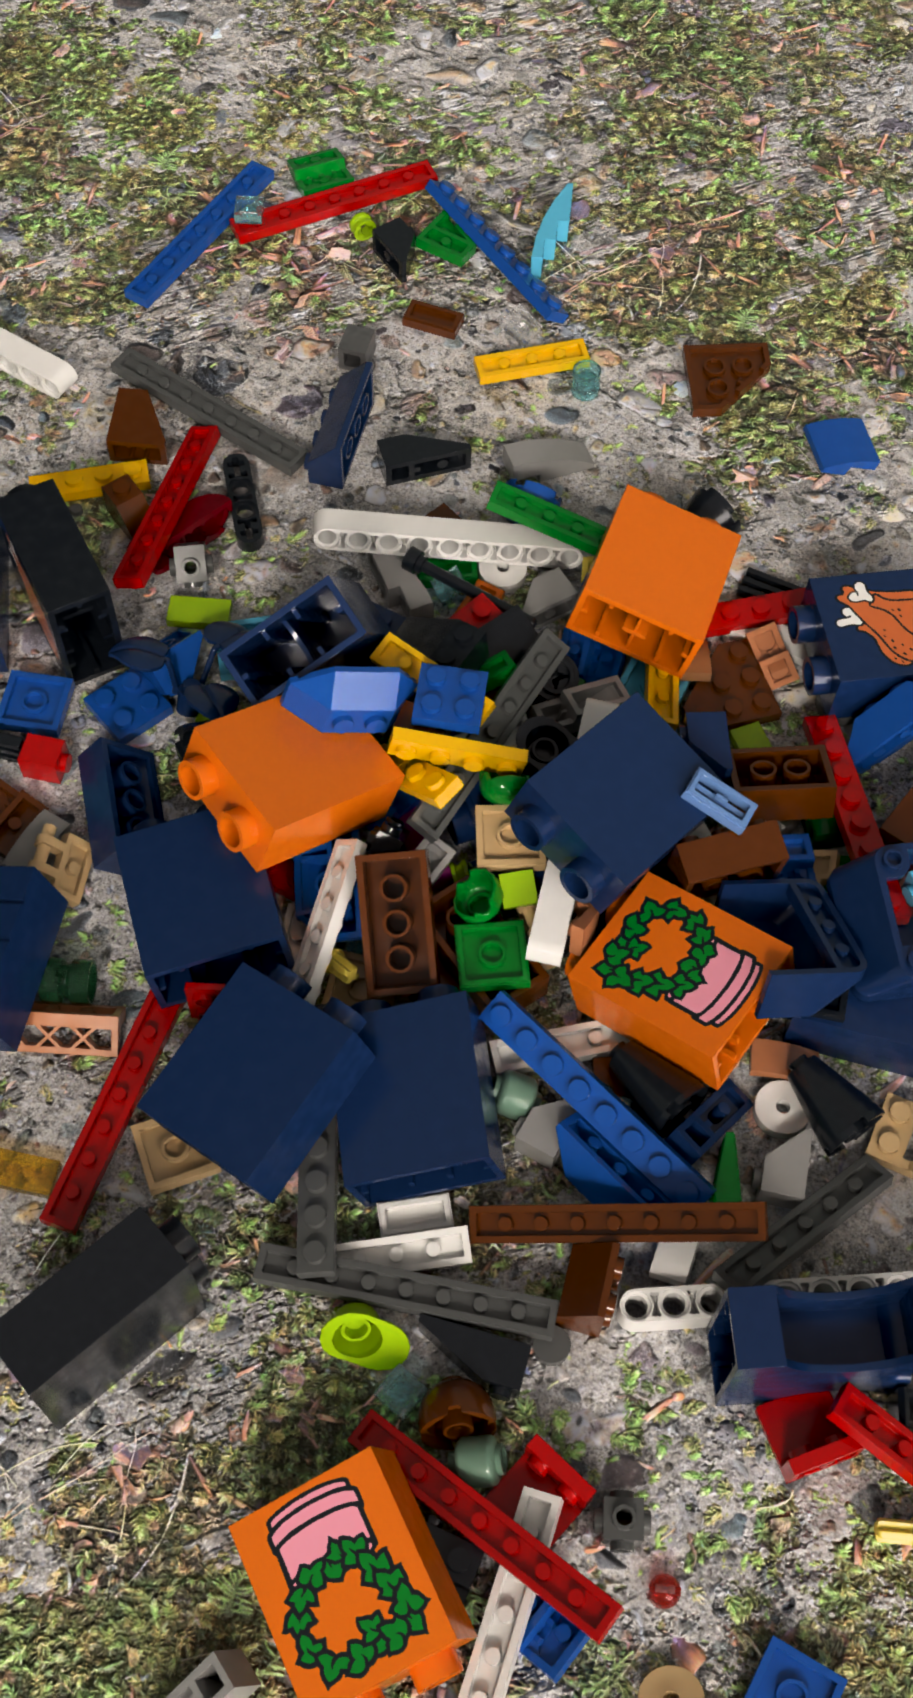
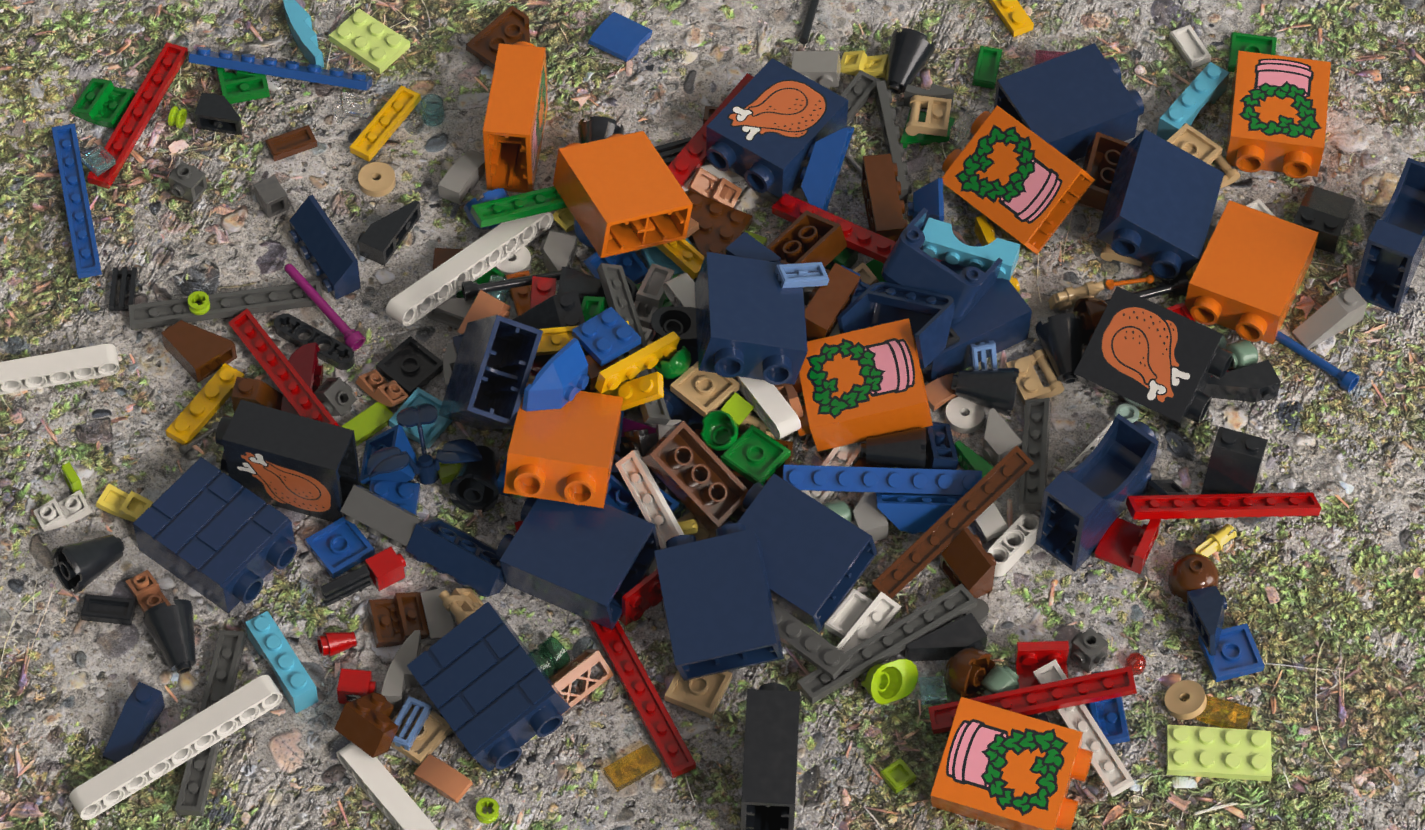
camera: 45 degrees left, 5 degrees down
(90, 700) = (380, 515): none -> dark grey brick
(146, 330) = (124, 273): none -> black tile
(184, 395) = (194, 307): none -> lime bush
(243, 590) = (382, 391): none -> nougat slope
(259, 1455) = (898, 775): none -> lime tile
(275, 526) = (352, 338): none -> magenta piece
(286, 582) = (410, 365): none -> black plate
(301, 282) = (187, 182): none -> dark grey brick
(402, 591) = (483, 307): none -> nougat slope
(468, 405) = (379, 187): none -> tan piece
(604, 284) = (369, 41): none -> yellowish green plate
(636, 430) = (515, 117): none -> orange brick
(808, 1624) = (1207, 612): none -> dark blue slope
(843, 1554) = (1192, 573): none -> reddish brown cylinder
(866, 1054) = (982, 348): none -> medium blue tile

